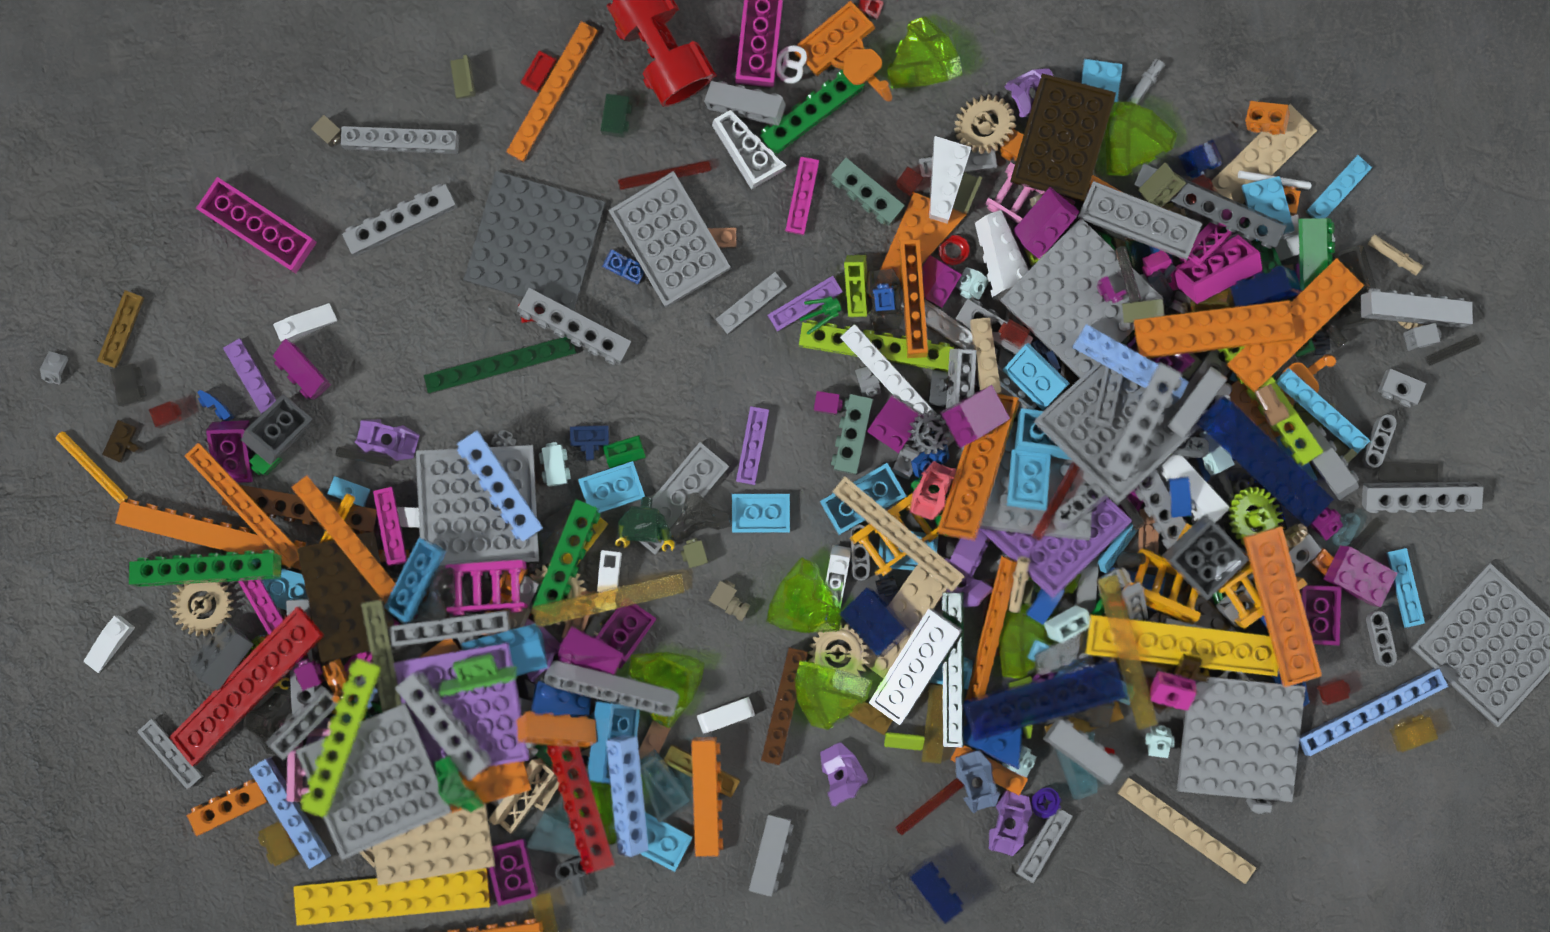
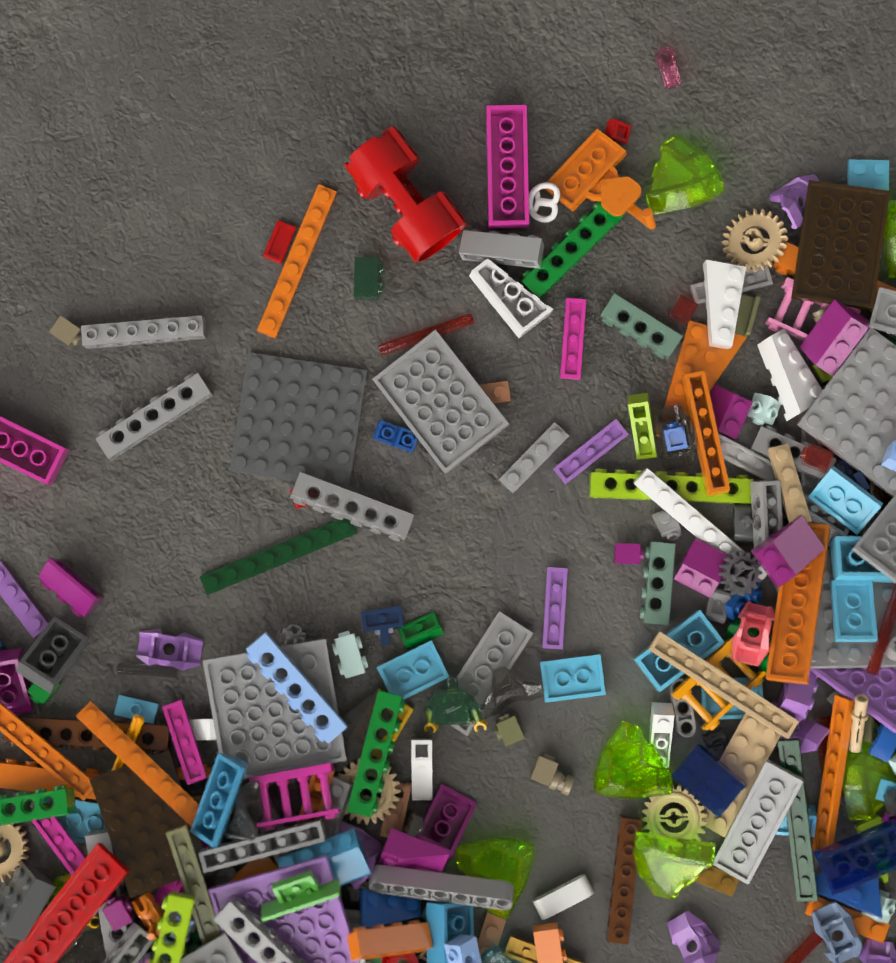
camera: 10 degrees left, 0 degrees up
(305, 322) = (67, 537): white slope -> none
(462, 77) = (201, 258): olive panel -> none
(608, 599) = (425, 792): clear yellow plate -> none
(830, 307) = (618, 452): green plant -> none
(904, 741) = (754, 899): lime slope -> none
(934, 726) = (783, 880): clear yellow plate -> none
(962, 243) = (749, 373): red piece -> none

